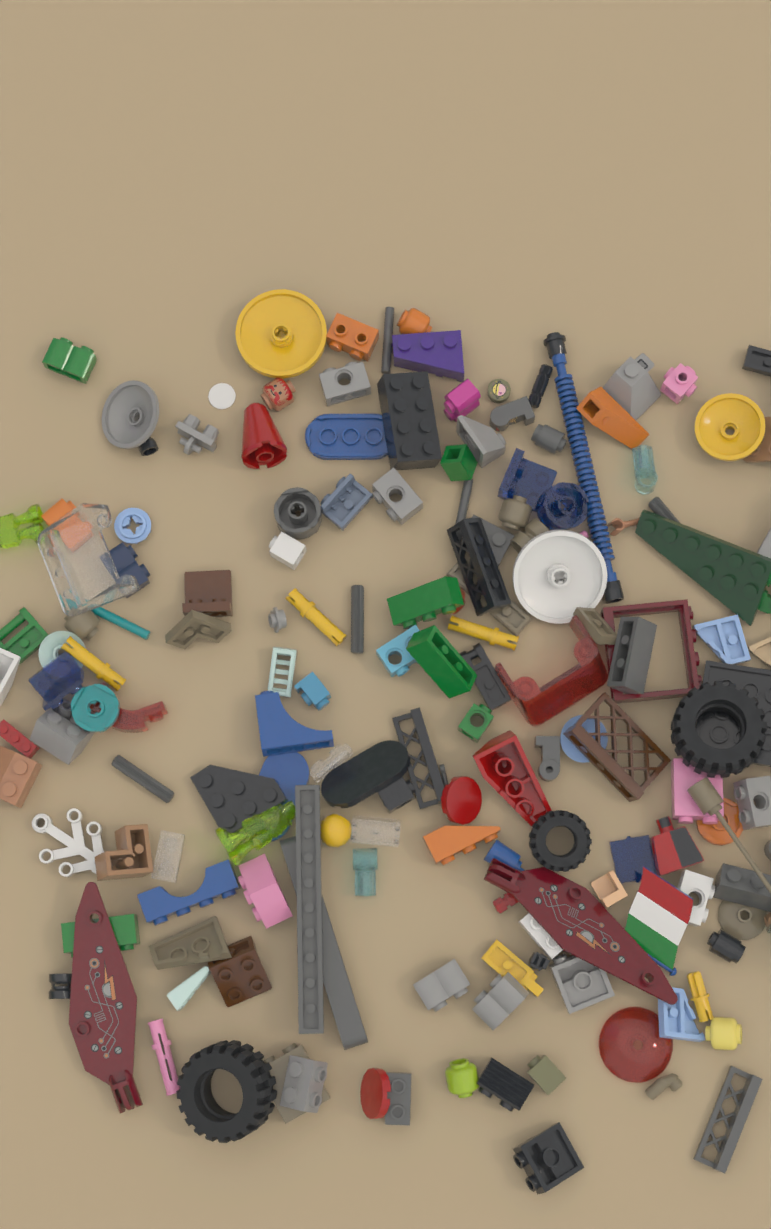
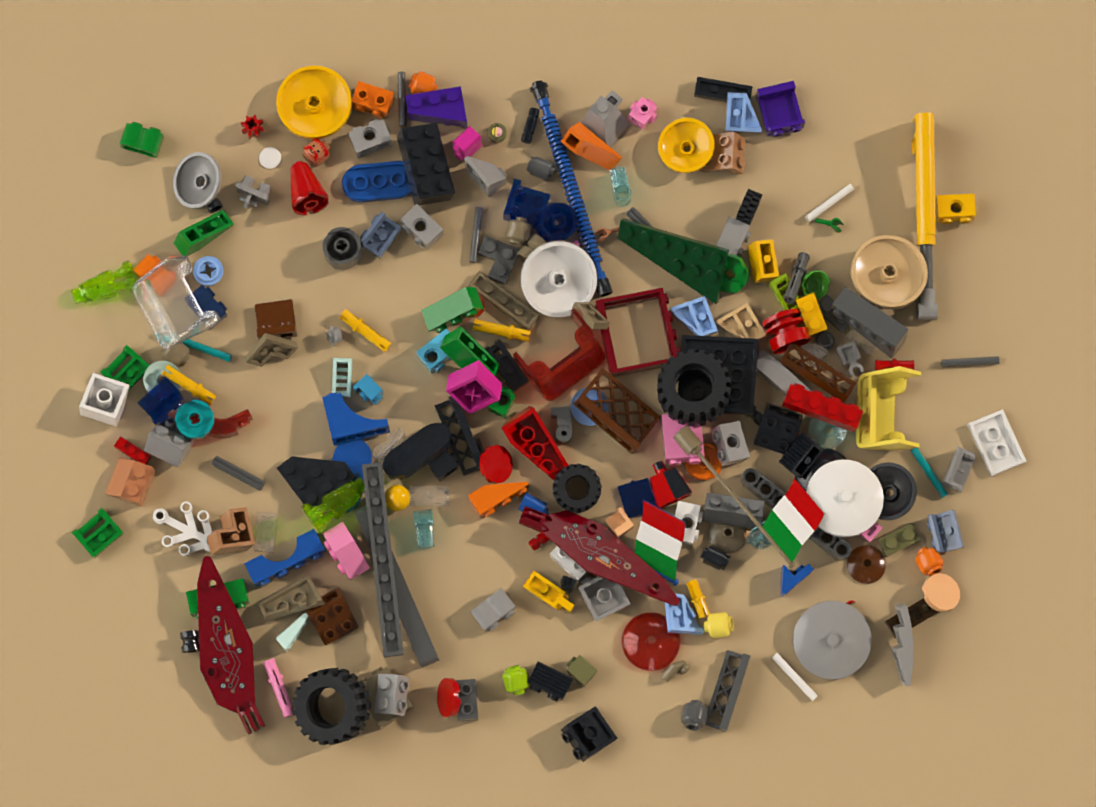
camera: 10 degrees left, 0 degrees up
(130, 479) = (201, 233): none -> green slope
(202, 350) = (249, 123): none -> red gear
(287, 550) = (336, 278): white brick -> none
(357, 619) = (398, 324): dark grey axle -> none
(443, 701) = (474, 387): none -> dark pink brick
(458, 462) = (469, 194): green brick -> none
(481, 563) = (495, 274): black fence -> none
(500, 1000) = (540, 617): light grey brick -> none
(512, 413) = (509, 150): dark grey leg -> none
(632, 655) = (621, 335): dark grey brick -> none
(684, 1147) = (694, 715): none -> dark grey head

